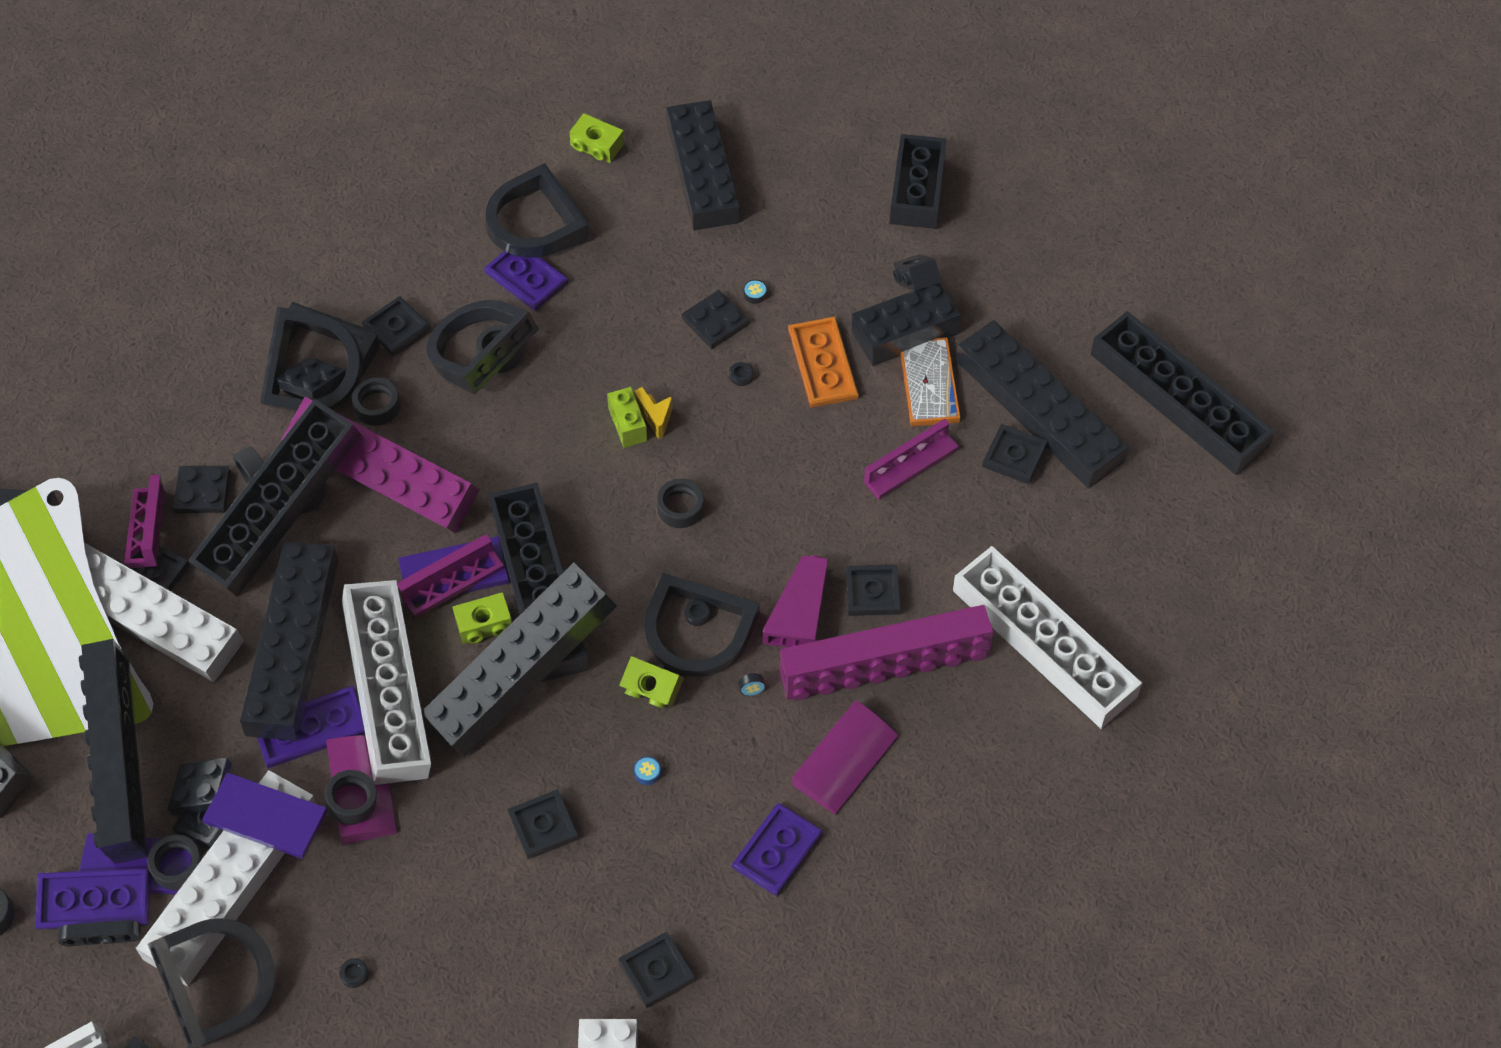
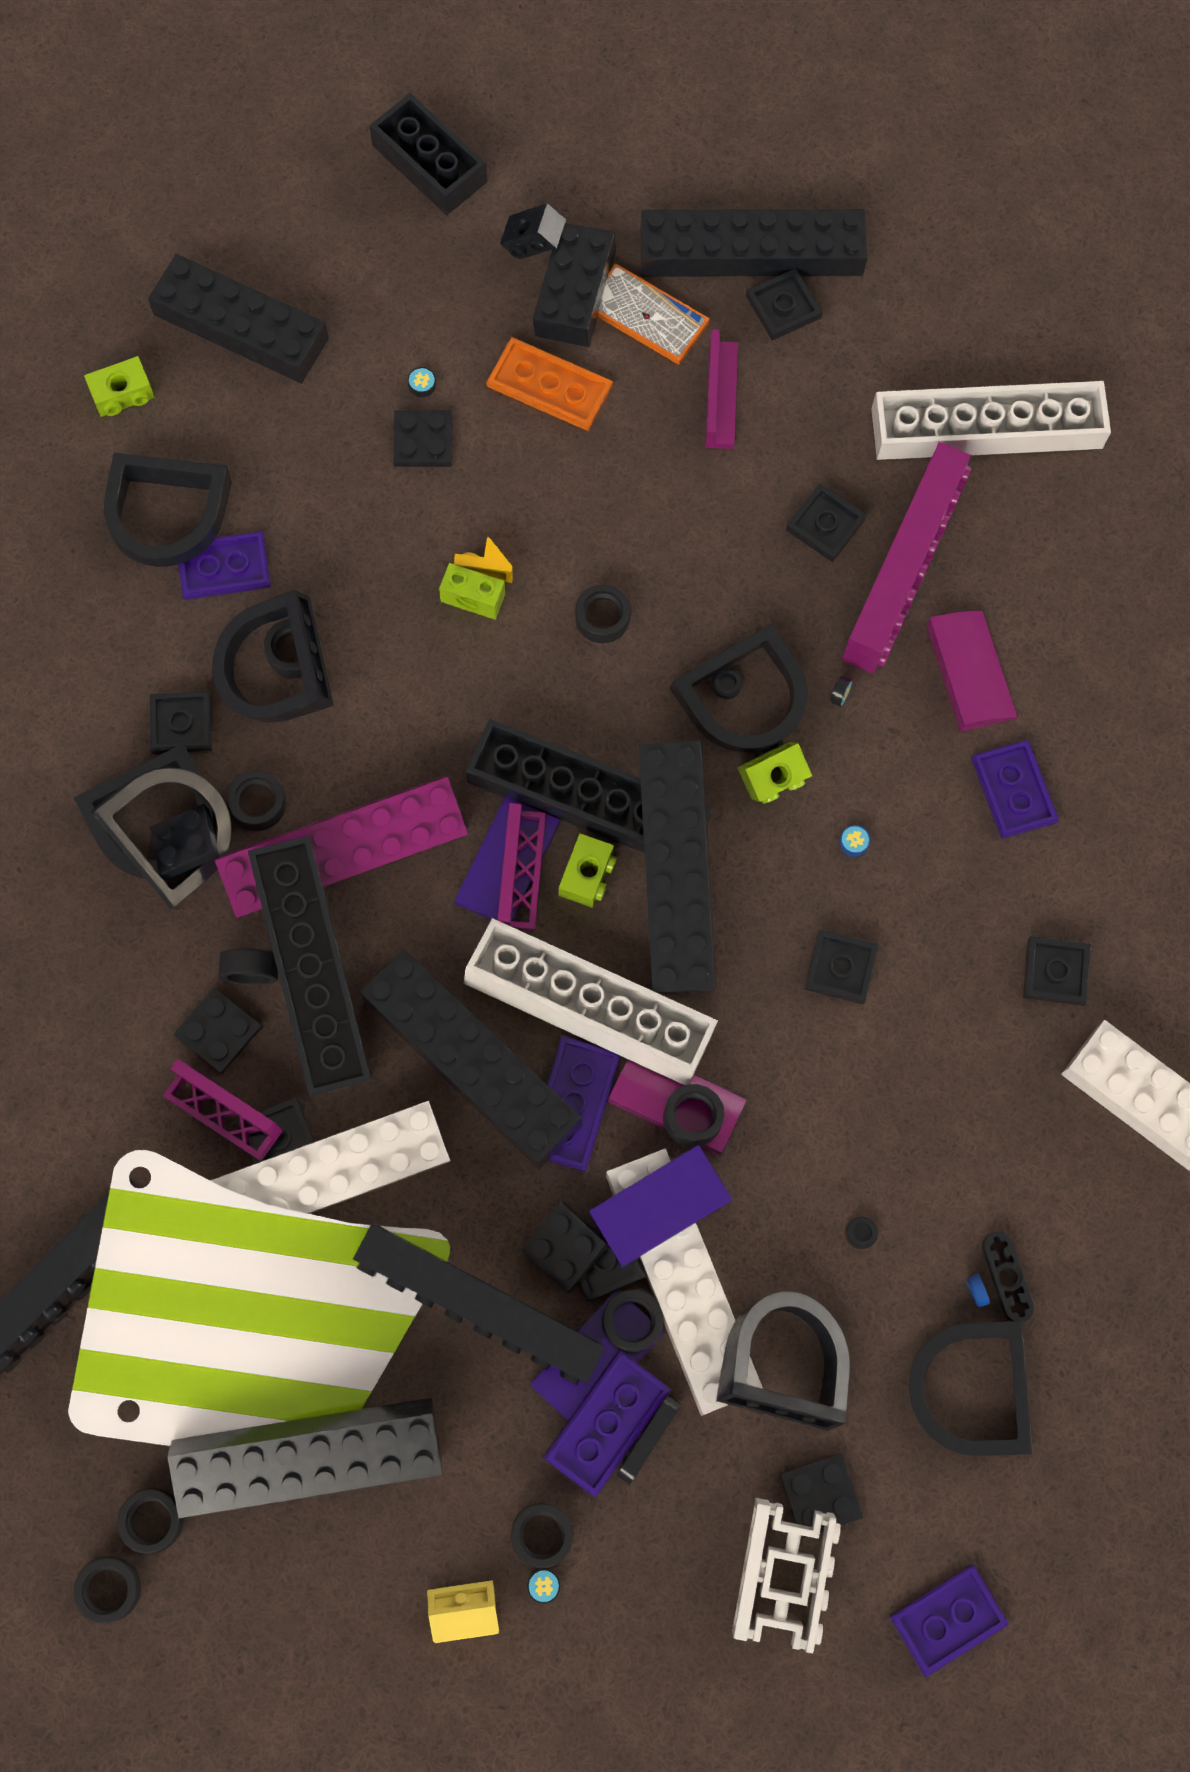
camera: 55 degrees left, 15 degrees up
(741, 374) = (503, 461): black tile -> none
(799, 606) = (796, 592): magenta slope -> none
(1182, 392) = (839, 126): black brick -> none

